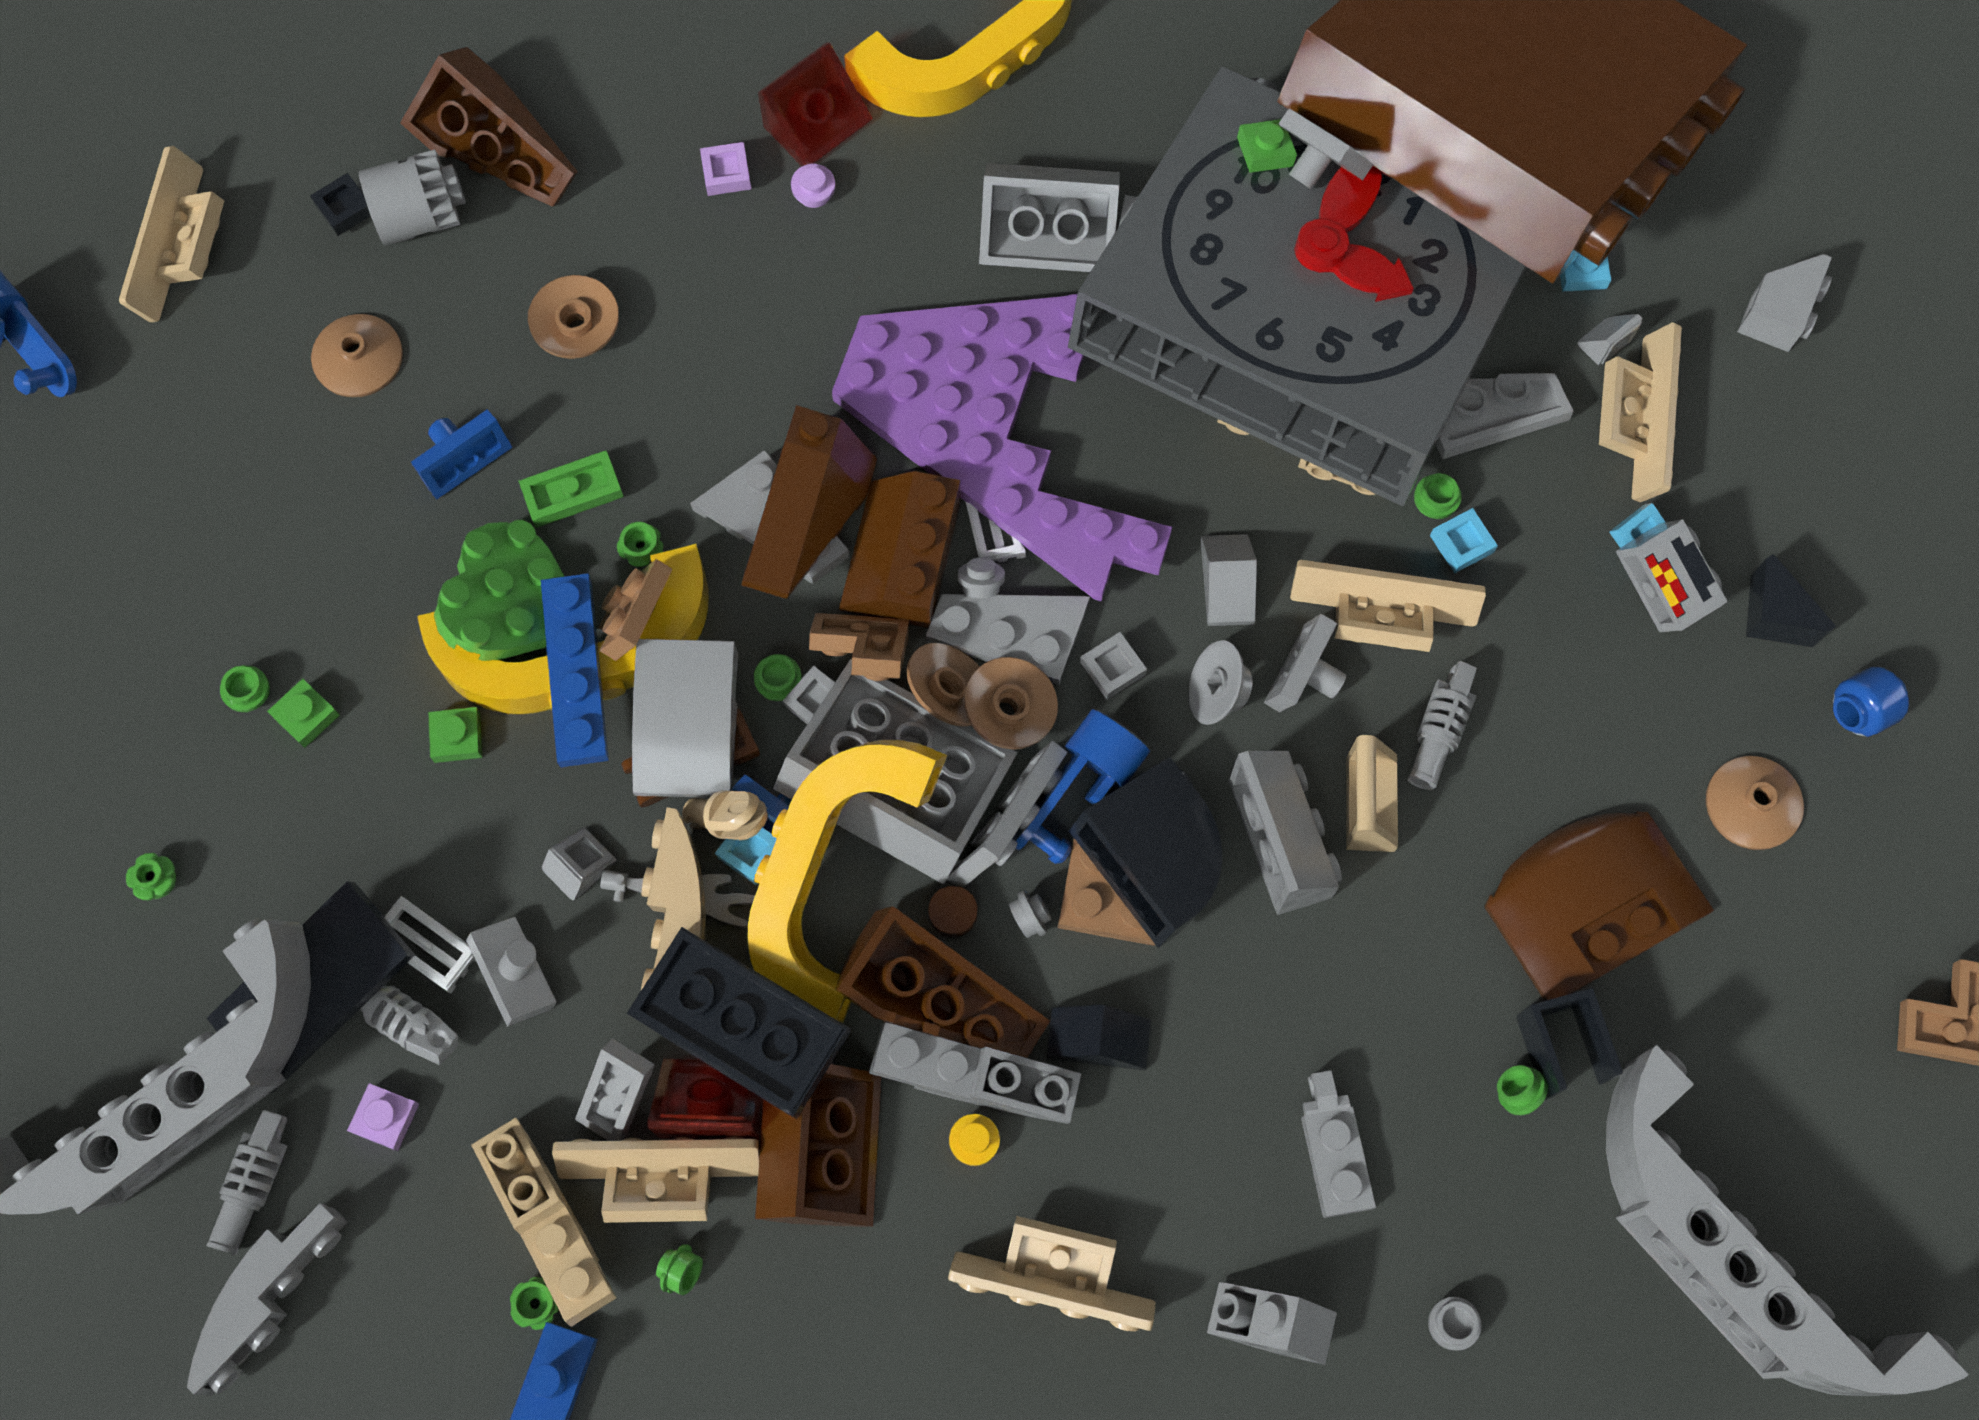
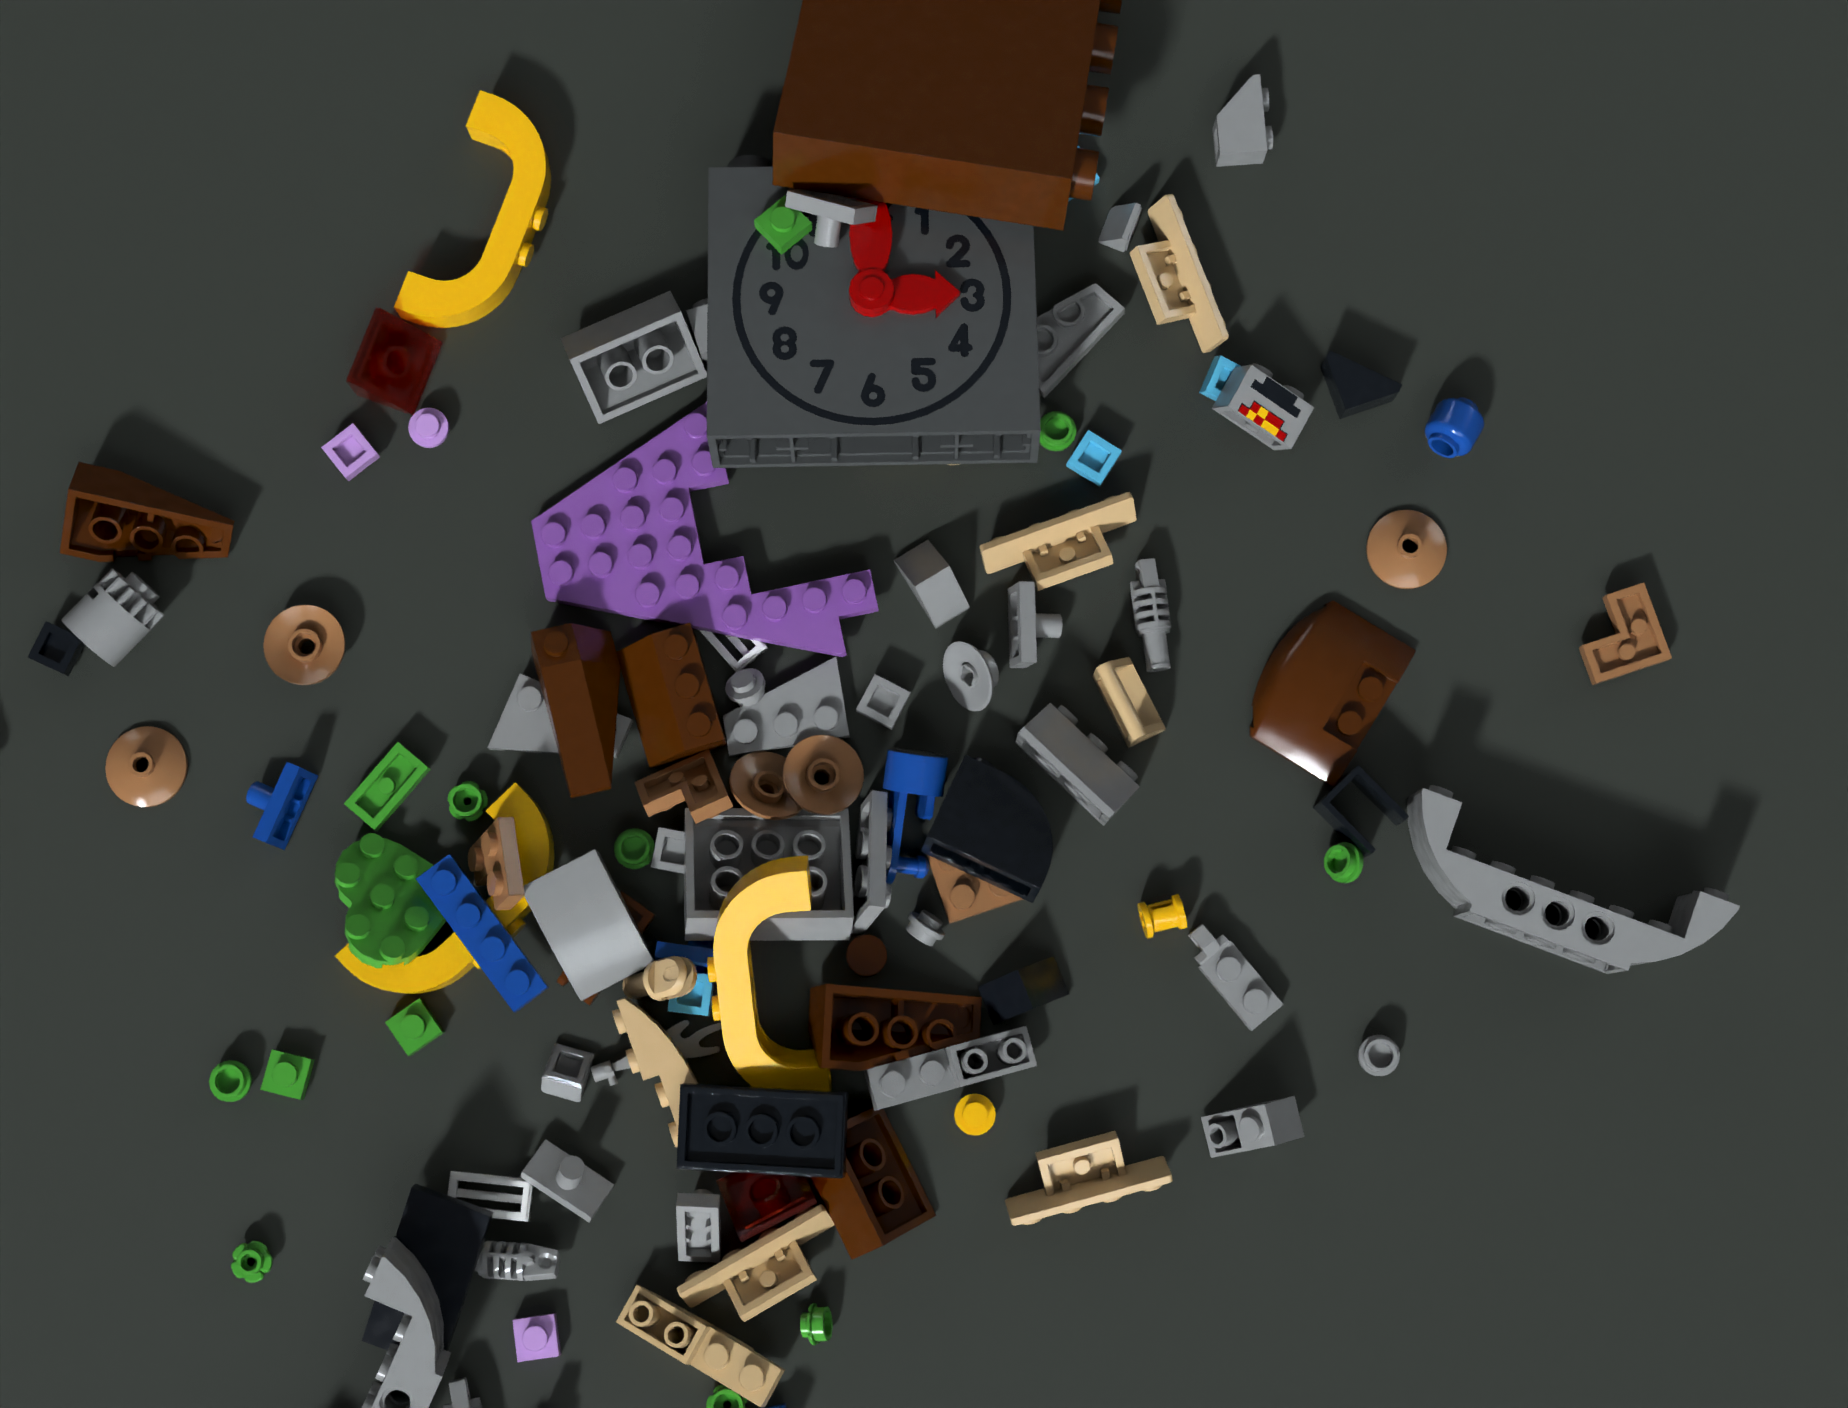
camera: 30 degrees left, 10 degrees up
(1291, 1039) = (1162, 915): none -> yellow bush

